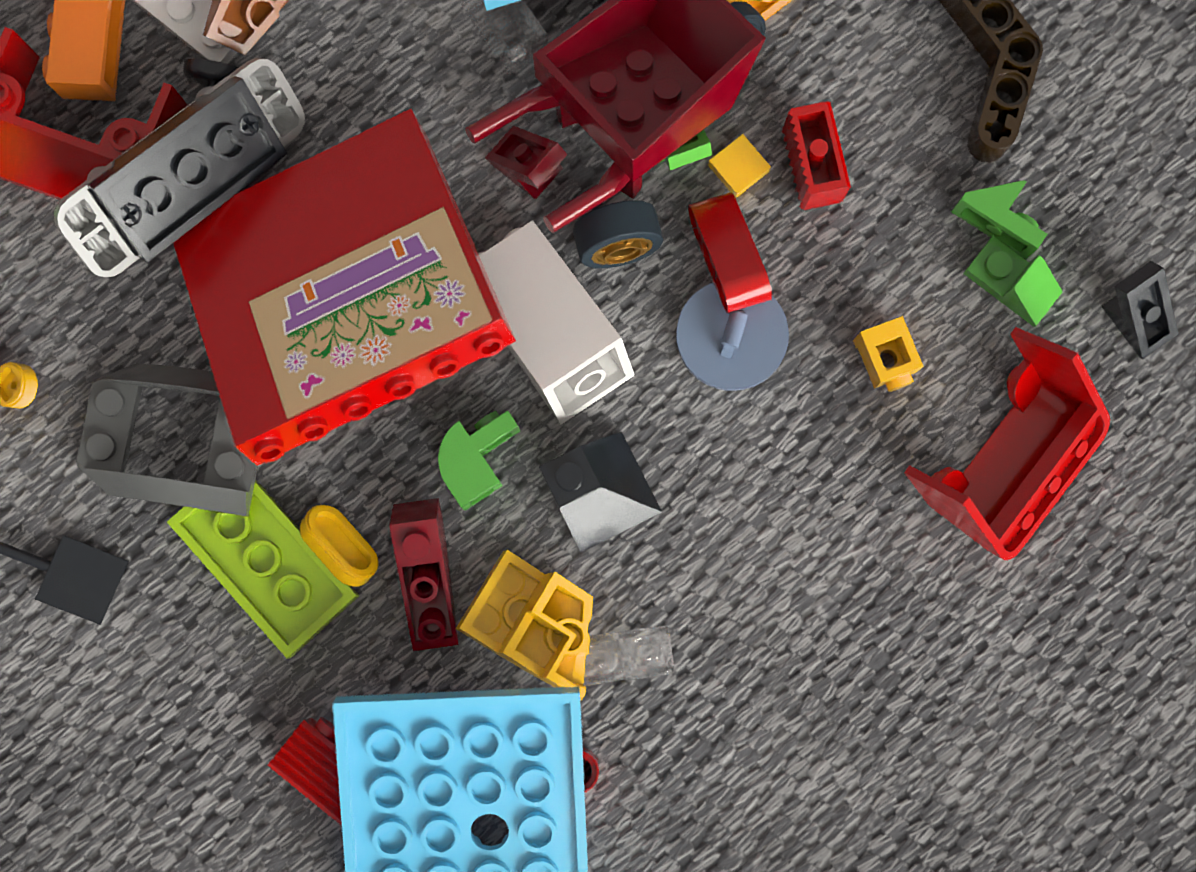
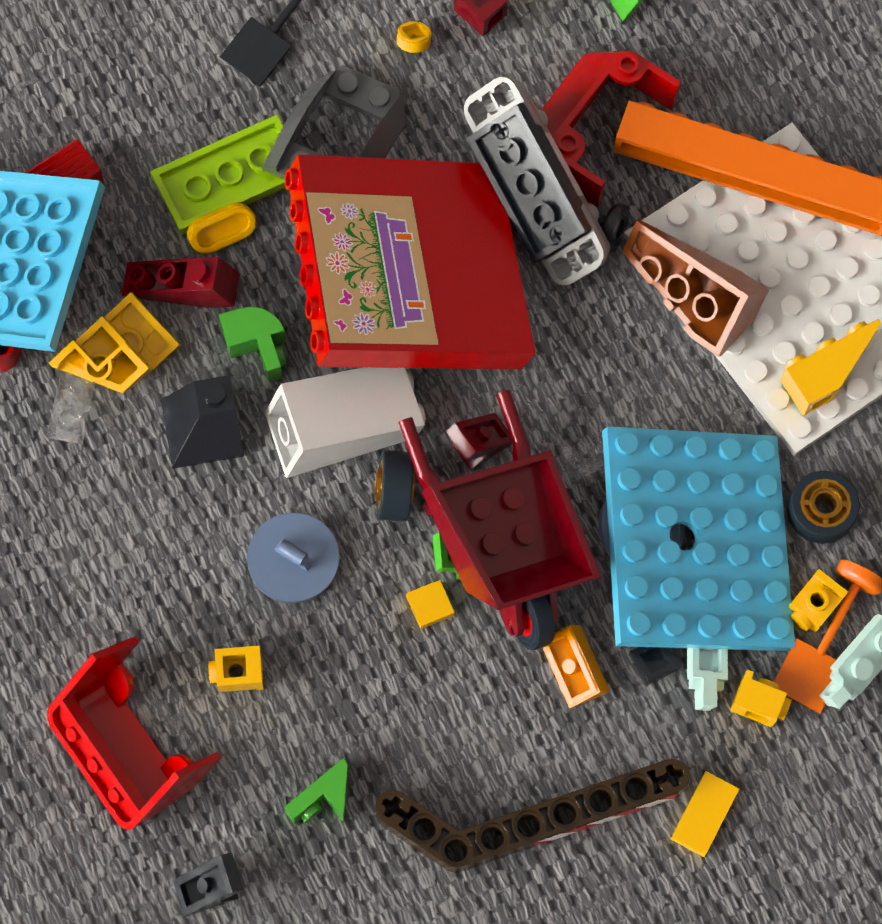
camera: 100 degrees right, 10 degrees down
(729, 252) = (356, 566): red beam -> none
(816, 155) = (414, 657): red brick -> none
(1018, 284) = (267, 794): bright green slope -> none

